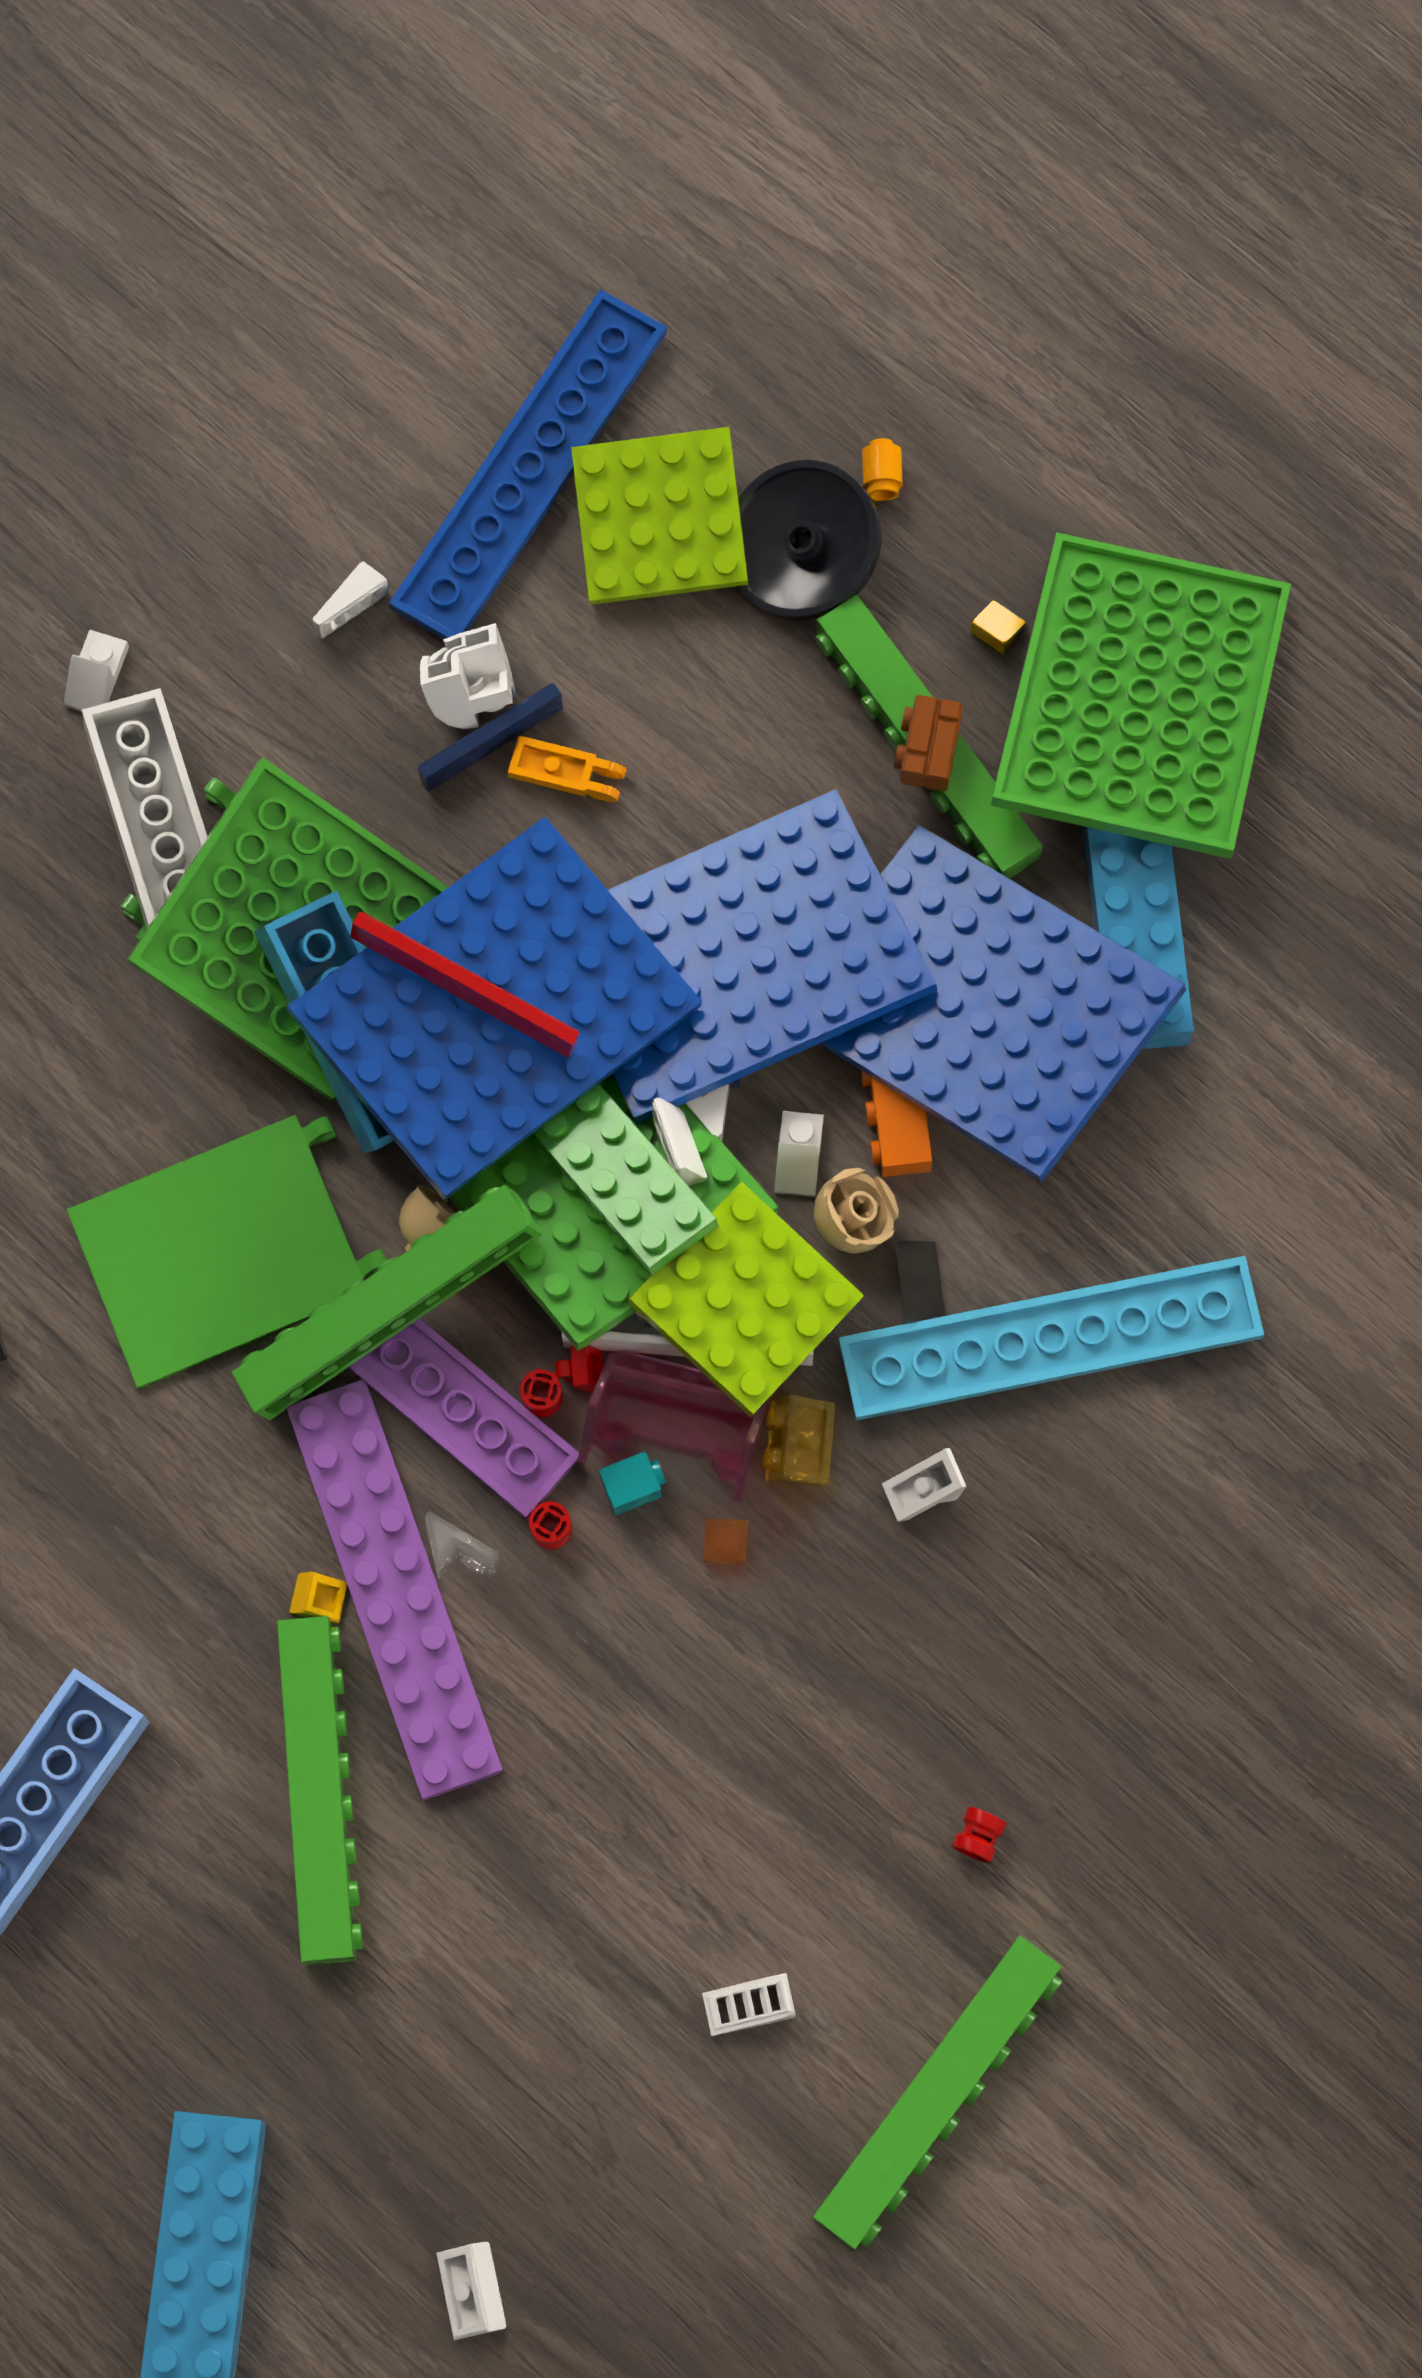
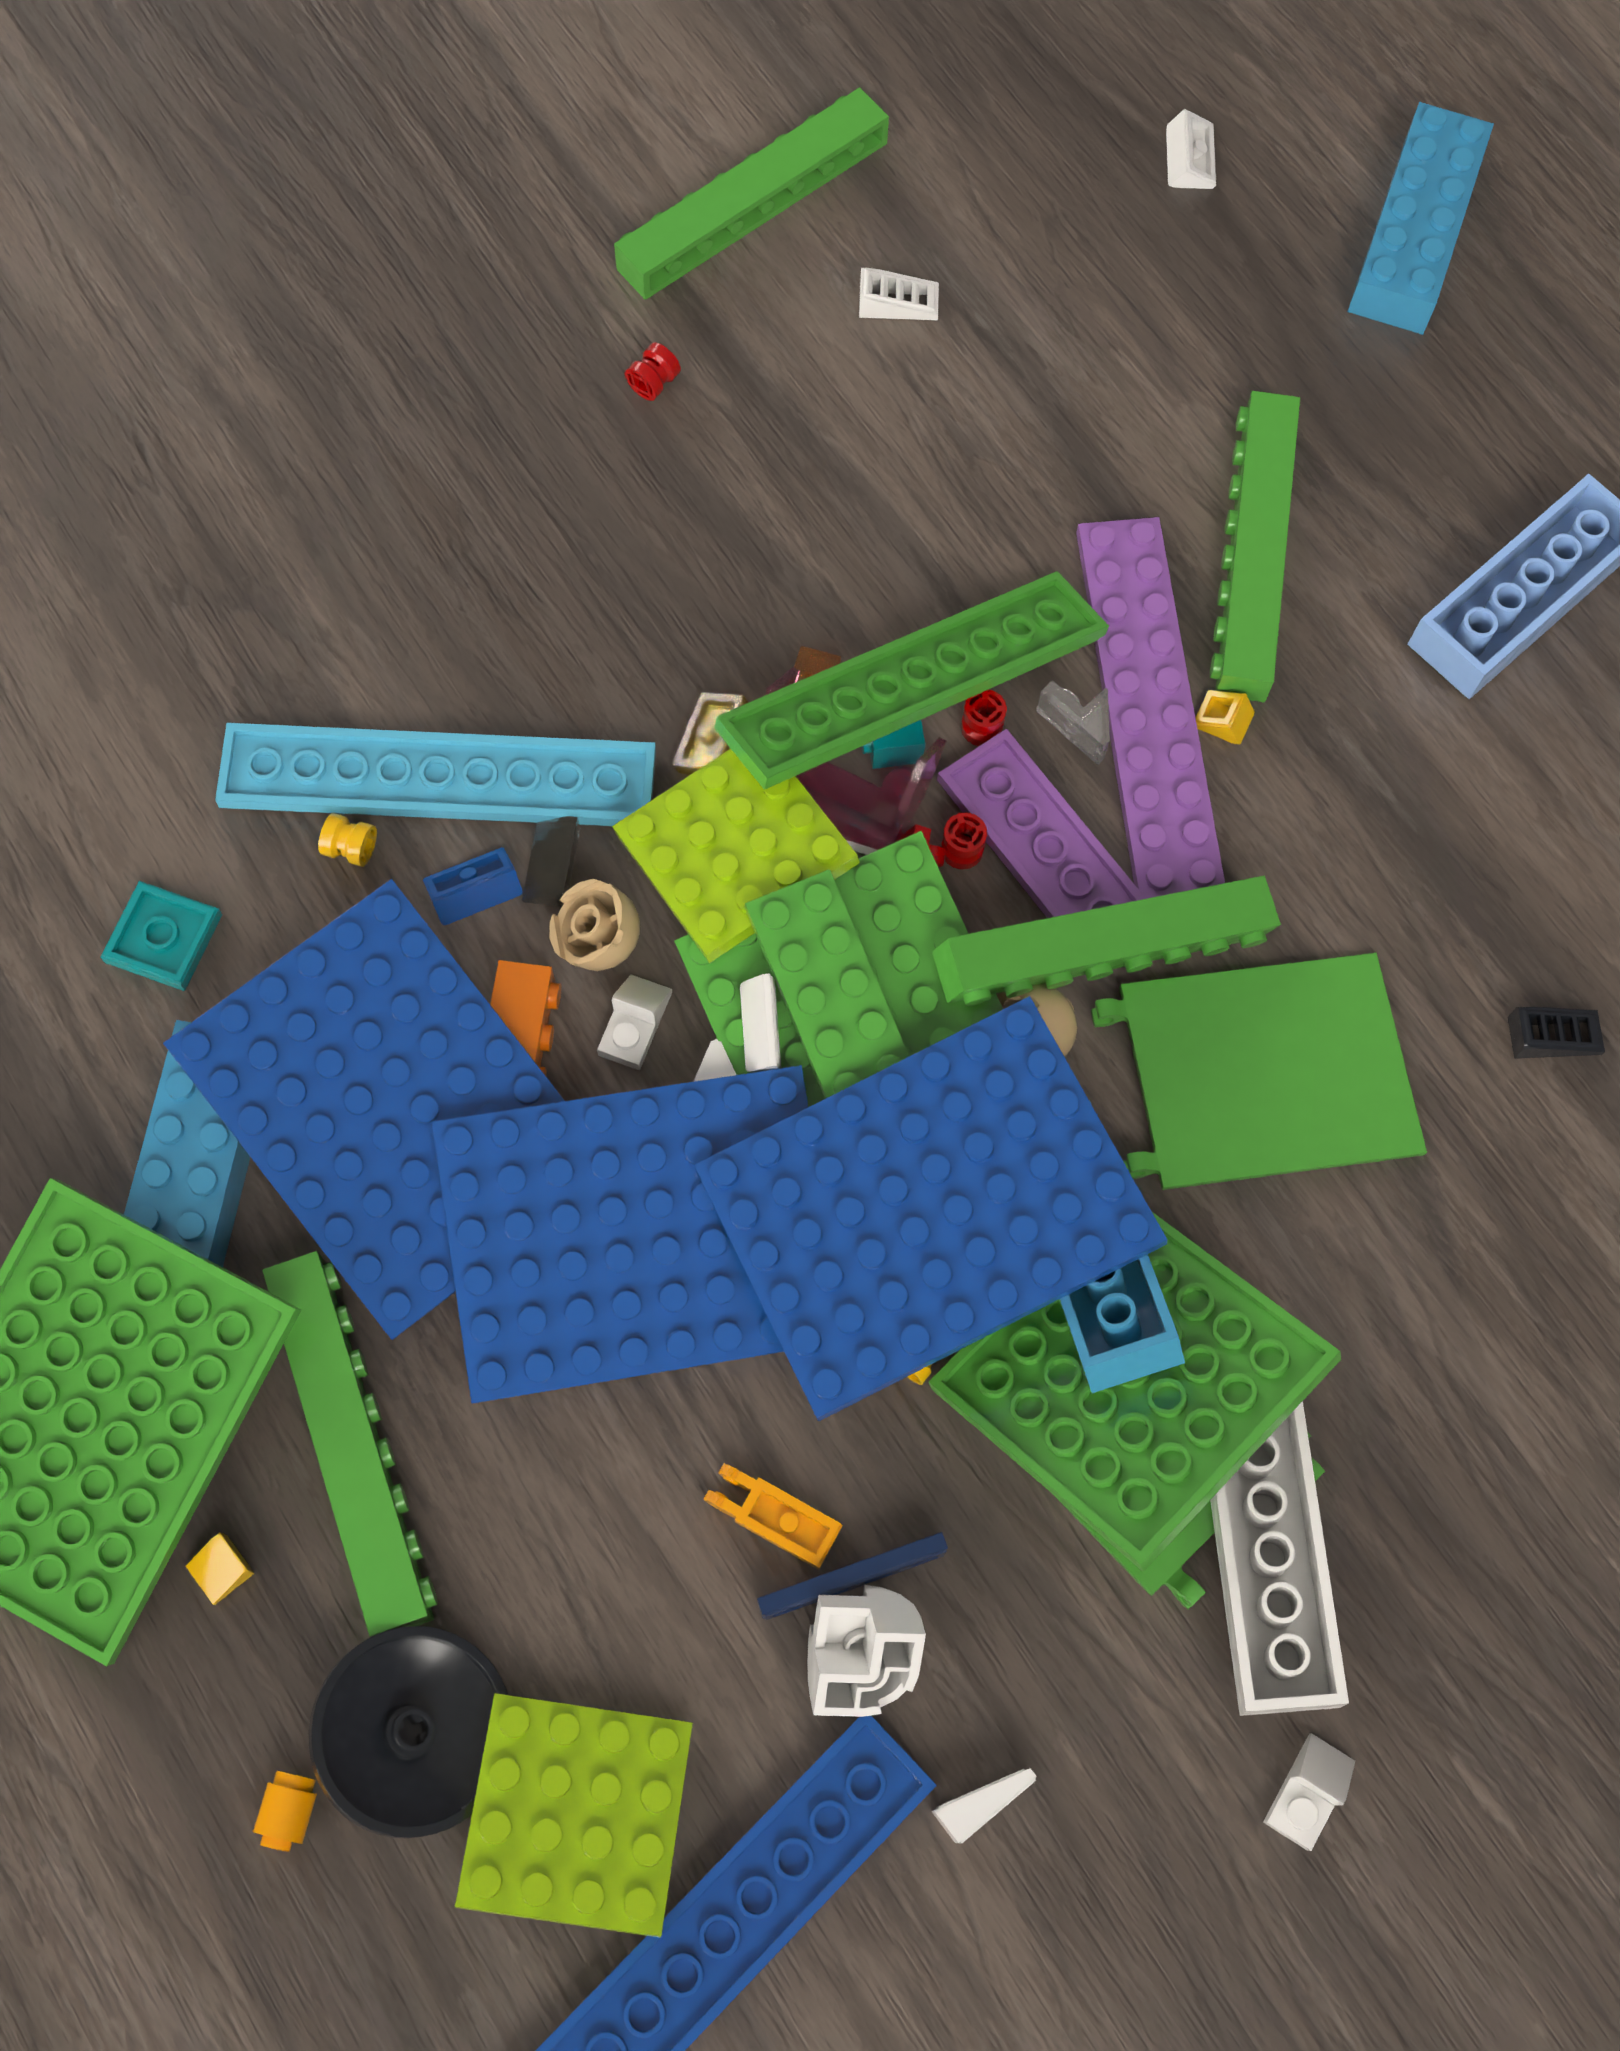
camera: 170 degrees left, 5 degrees down
(464, 984) = (962, 1212): red tile -> none
(620, 1519) = (908, 679): none -> bright green plate
(925, 1485) = (606, 661): white slope -> none
(930, 742) = (344, 1411): dark orange brick -> none
(985, 1245) = (473, 886): none -> blue slope
(1111, 1251) = (346, 839): none -> yellow wheel
(1248, 1126) = (161, 935): none -> teal tile

